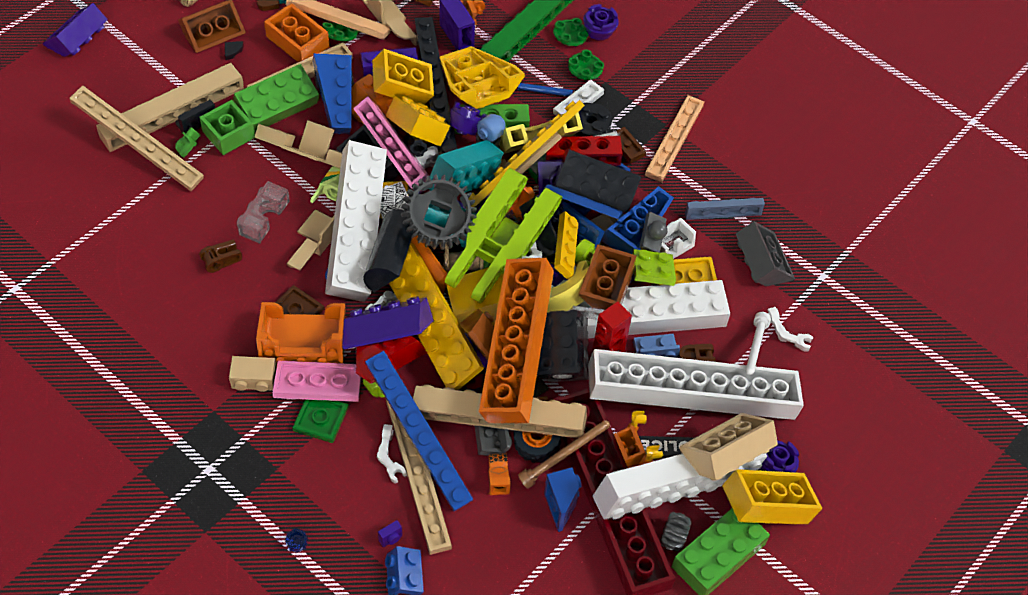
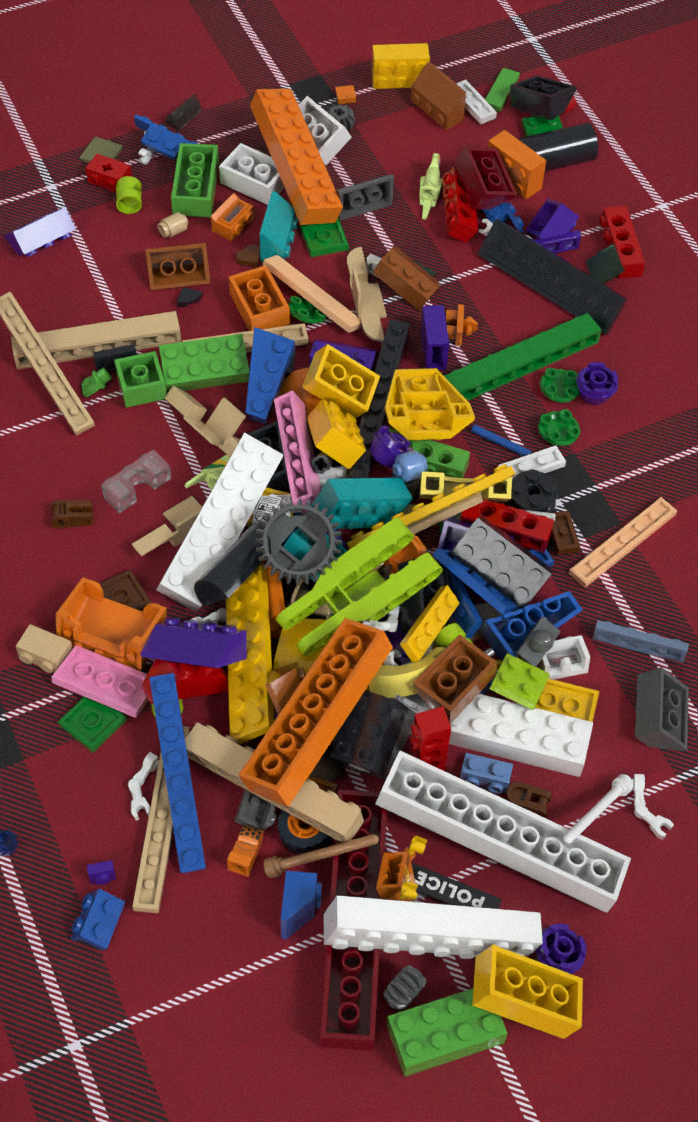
camera: 25 degrees right, 0 degrees up
(730, 445) = (498, 915): tan slope -> none

